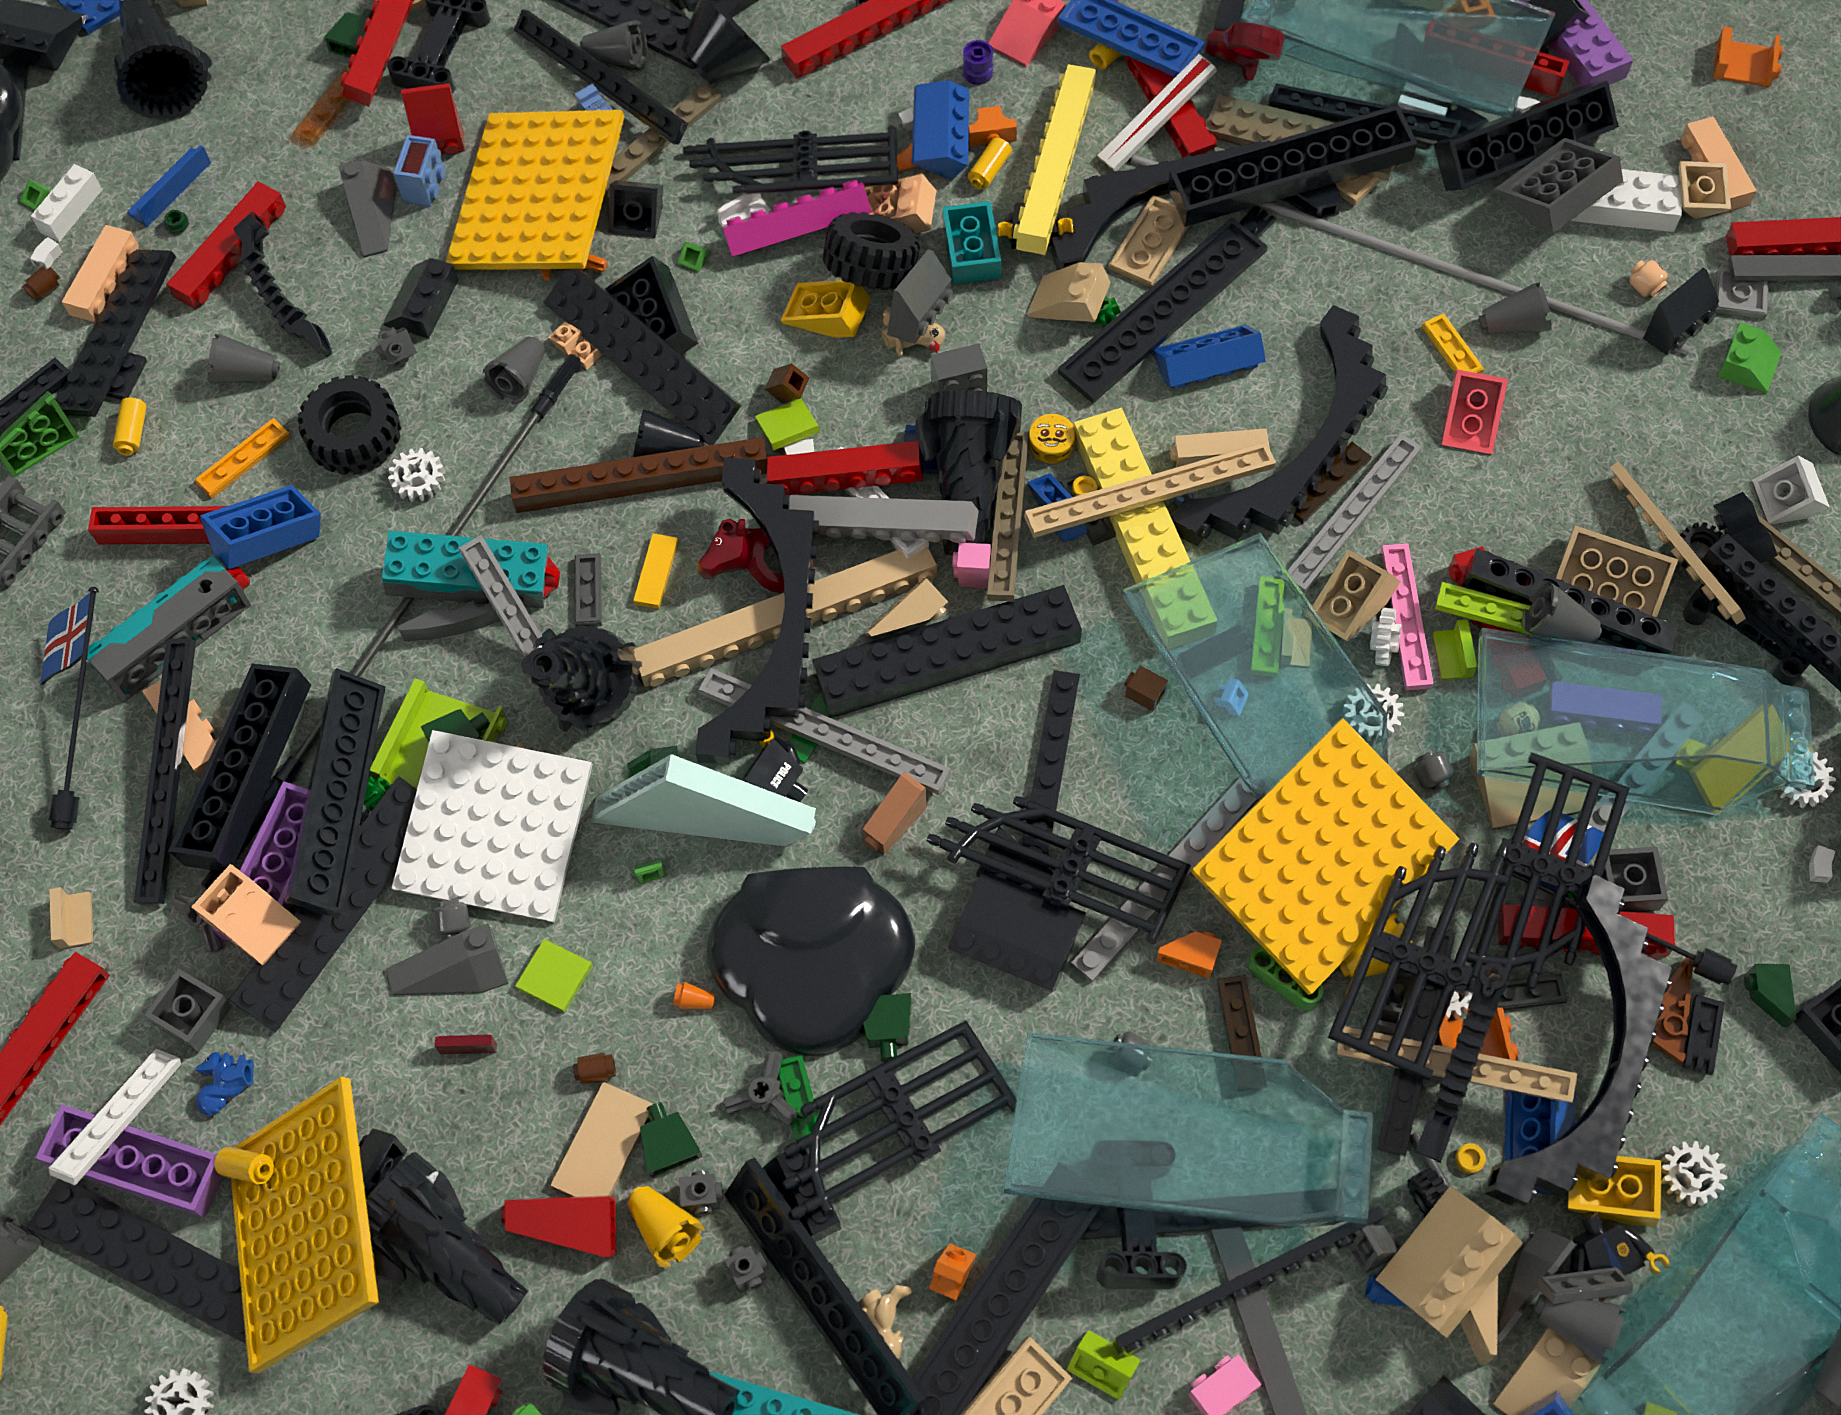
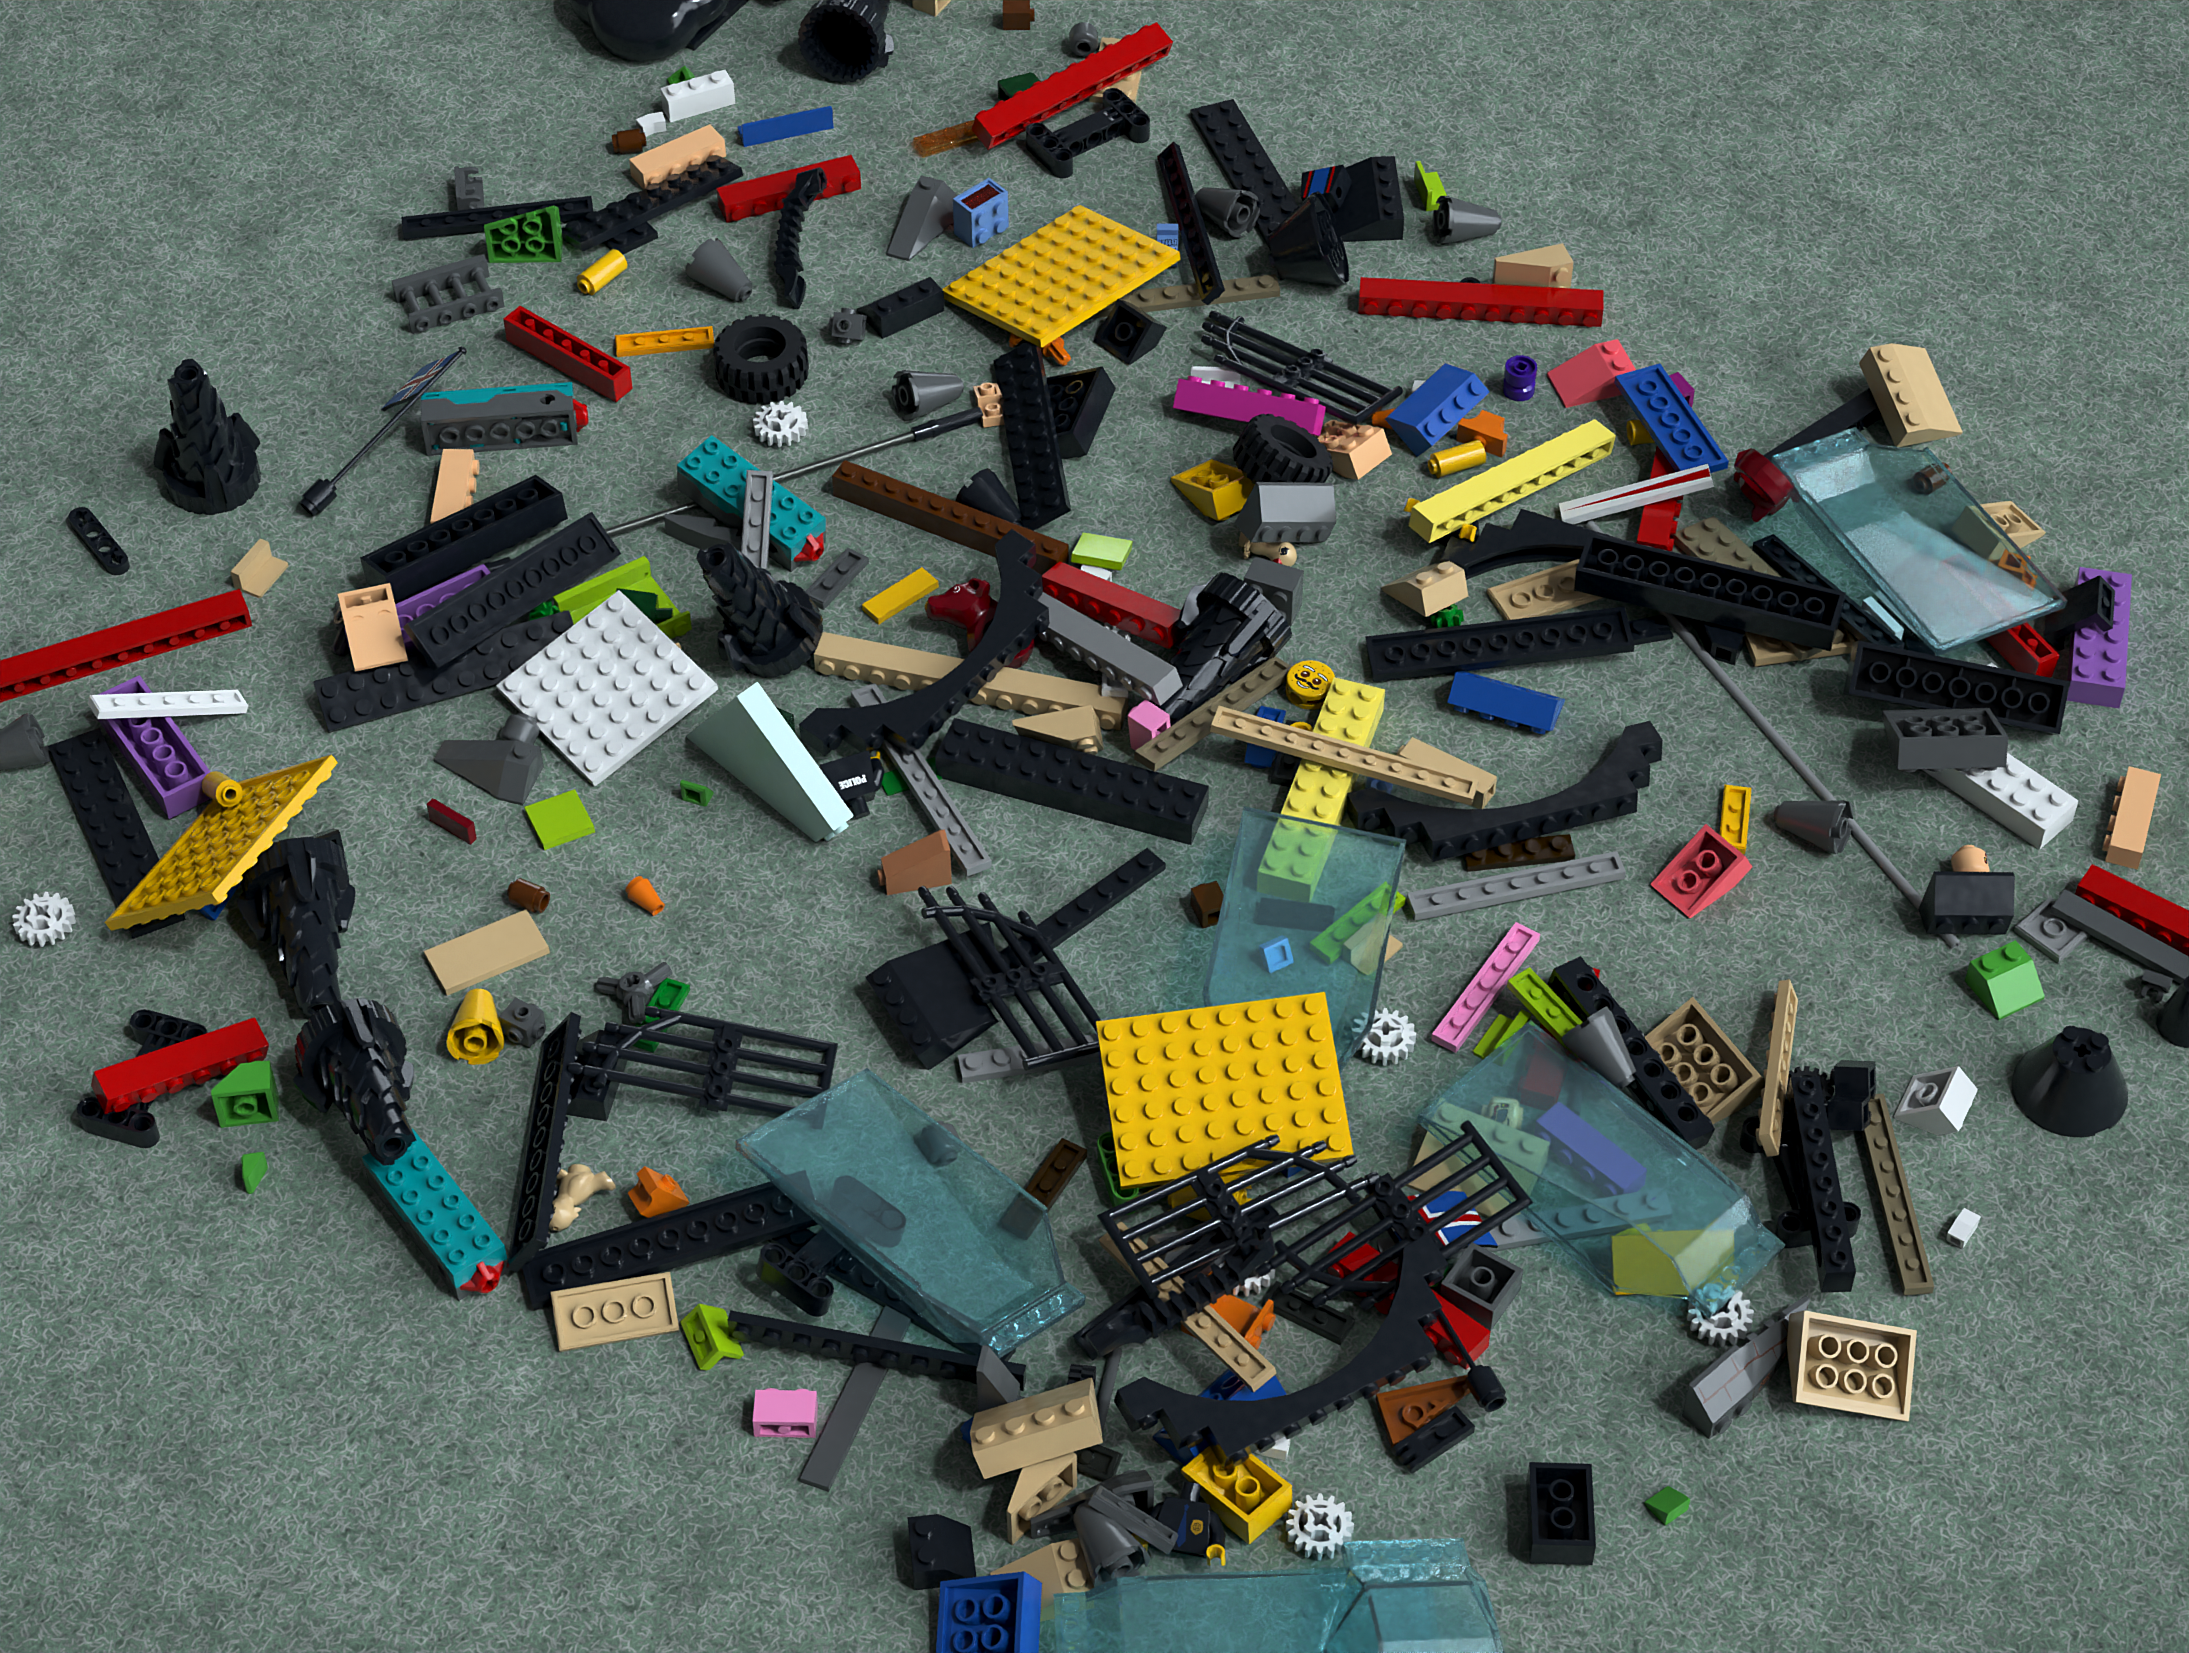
camera: 35 degrees right, 15 degrees down
(165, 771) = (410, 507): black plate -> none
(175, 216) = (767, 152): dark green plate -> none
(188, 1010) = (281, 675): dark grey brick -> none
(228, 1081) = (267, 739): blue animal -> none
(261, 526) = (628, 387): blue slope -> none
(434, 115) = (1027, 179): red slope -> none
(573, 1222) = (415, 979): red slope -> none
(666, 1141) = (532, 975): dark green torso -> none
(693, 256) = (1145, 393): bright green slope -> none
(750, 1278) = (507, 1093): dark grey brick -> none
(787, 383) = (1128, 521): reddish brown brick -> none
(810, 954) = (761, 919): black plant -> none
(889, 1024) = (774, 1001): dark green torso -> none
(971, 242) = (1378, 505): teal brick -> none
(1192, 953) = (1059, 1108): orange slope -> none
(1354, 595) = (1451, 940): tan slope -> none
(1385, 636) = (1444, 982): white gear -> none
(1433, 769) = (1393, 1107): dark grey head -> none
(1704, 188) = (2089, 821): tan slope -> none
(1772, 991) = (1527, 1442): dark green slope -> none
(1821, 864) = (1670, 1388): white piece -> none

